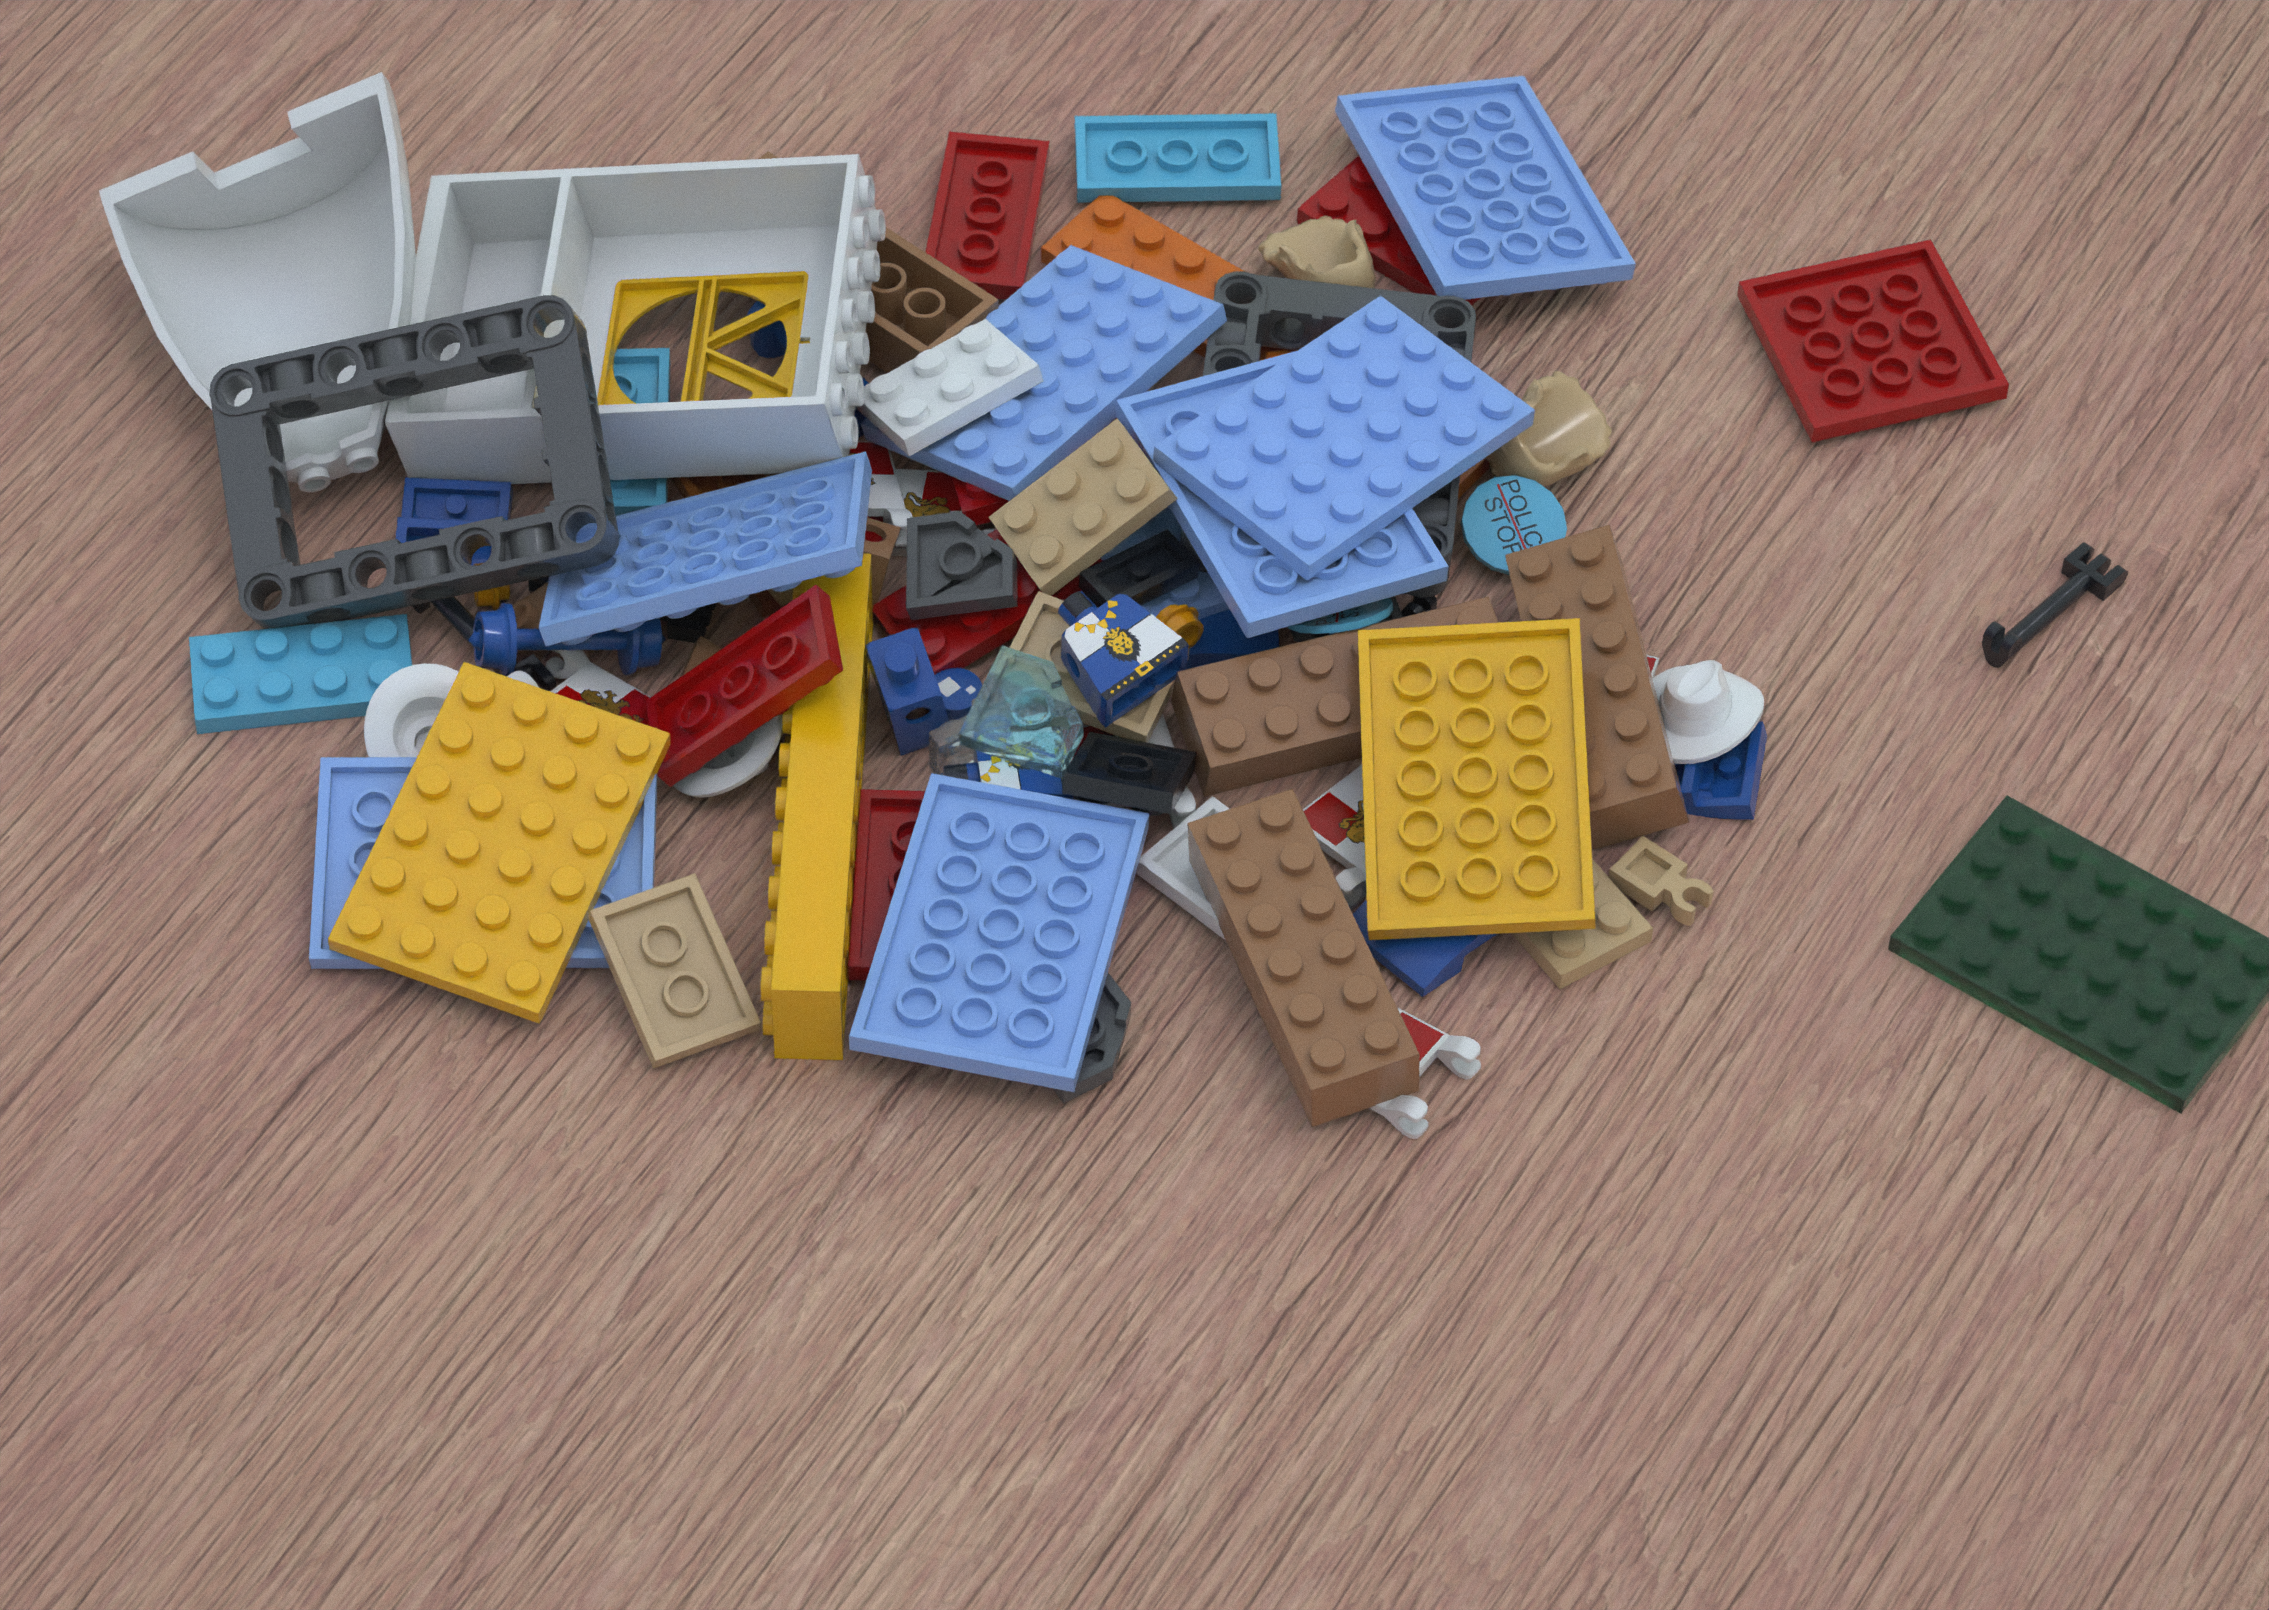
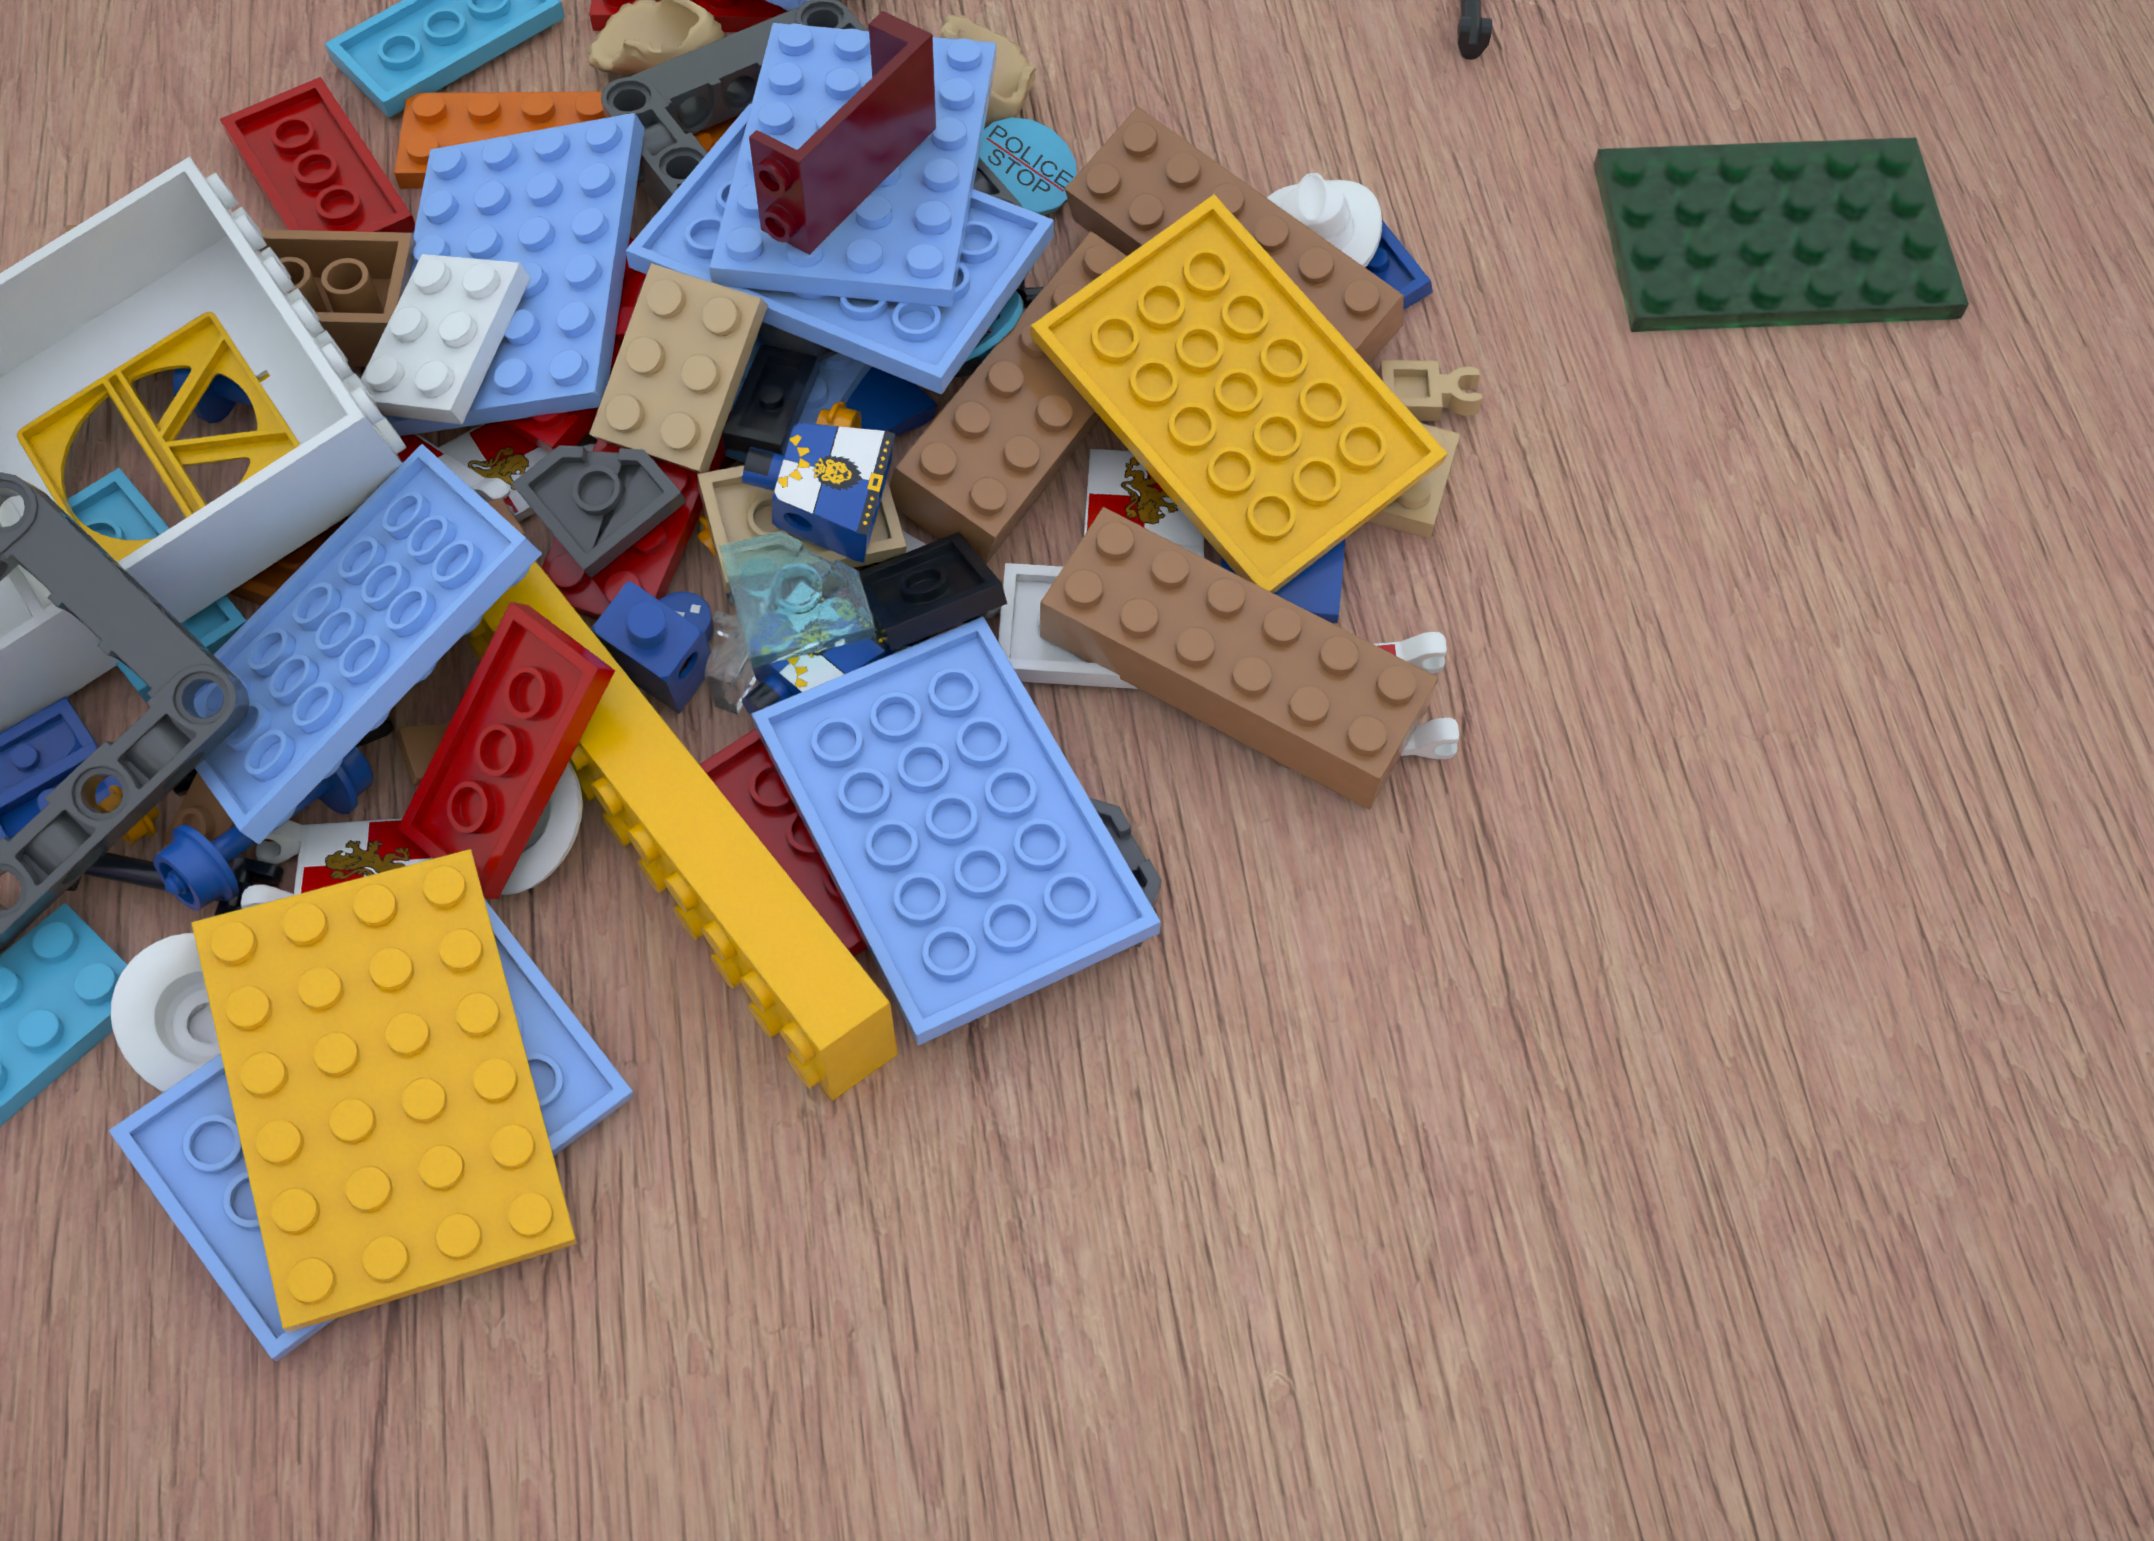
camera: 40 degrees left, 10 degrees up
(674, 970) = (672, 1089): tan plate -> none
(1318, 416) = (820, 184): none -> dark red panel

